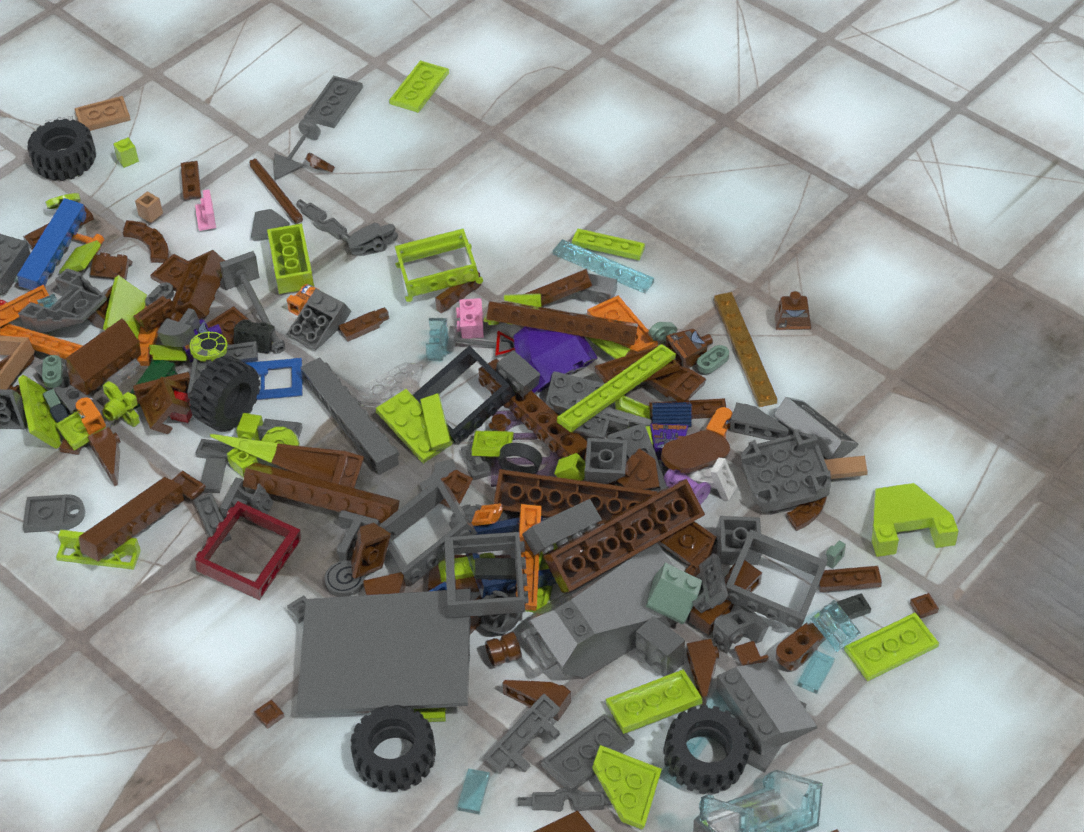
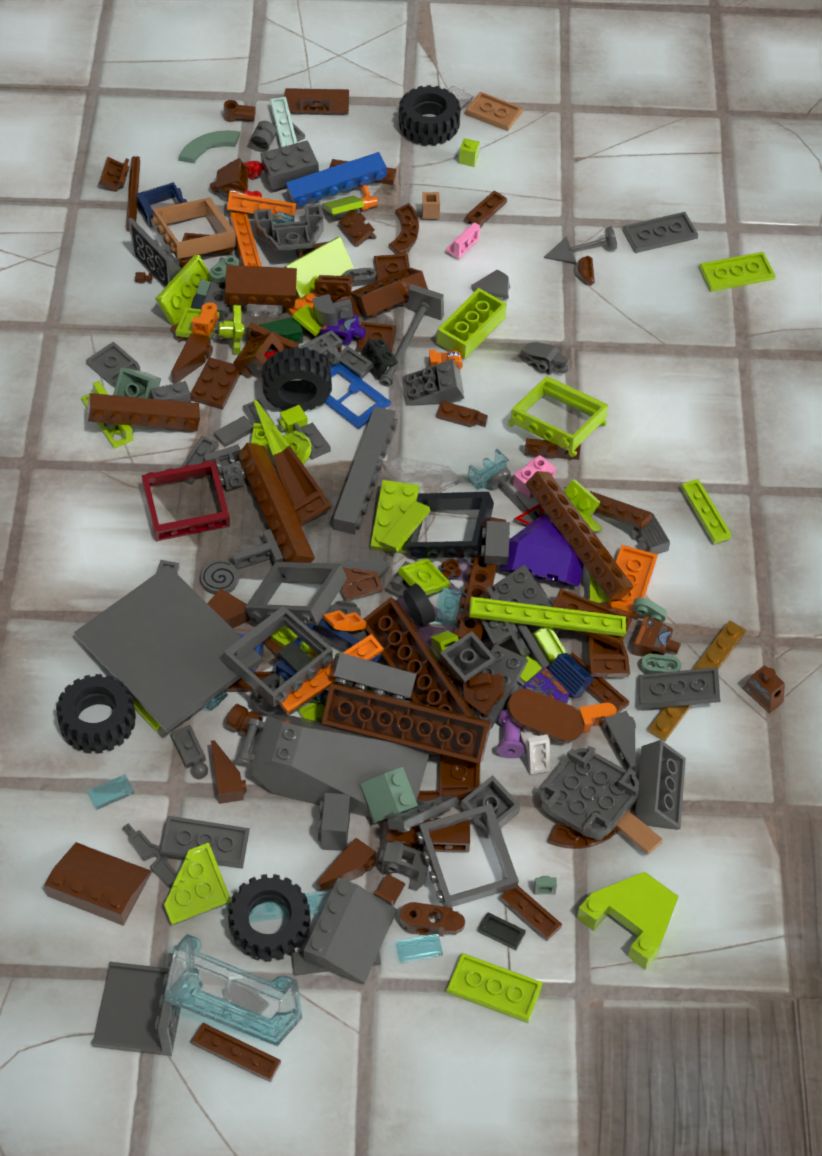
camera: 45 degrees right, 5 degrees up
(55, 202) = (384, 154): lime tile -> none
(93, 508) = (135, 383): none -> sand green slope
(134, 485) = (174, 392): none -> dark grey brick
(151, 456) = (215, 383): none -> reddish brown plate
(190, 486) = (208, 422): reddish brown tile -> none
(208, 346) = (333, 338): tile -> none
(269, 714) = (65, 619): reddish brown tile -> none
(276, 191) = (531, 266): reddish brown axle -> none
(318, 216) = (535, 309): dark grey piece -> none
(369, 549) = (247, 571): reddish brown slope -> none
(492, 706) = (191, 751): none -> dark grey plate
(510, 747) = (194, 786): dark grey hinge -> none
(530, 439) = (449, 606): none -> clear light blue plate
(603, 266) = (681, 524): clear light blue tile -> none
(653, 701) = (287, 853): lime plate -> none
(746, 360) = (679, 688): none -> dark grey tile
(835, 626) = (468, 931): clear light blue window -> none
(924, 605) = (557, 985): reddish brown tile -> none

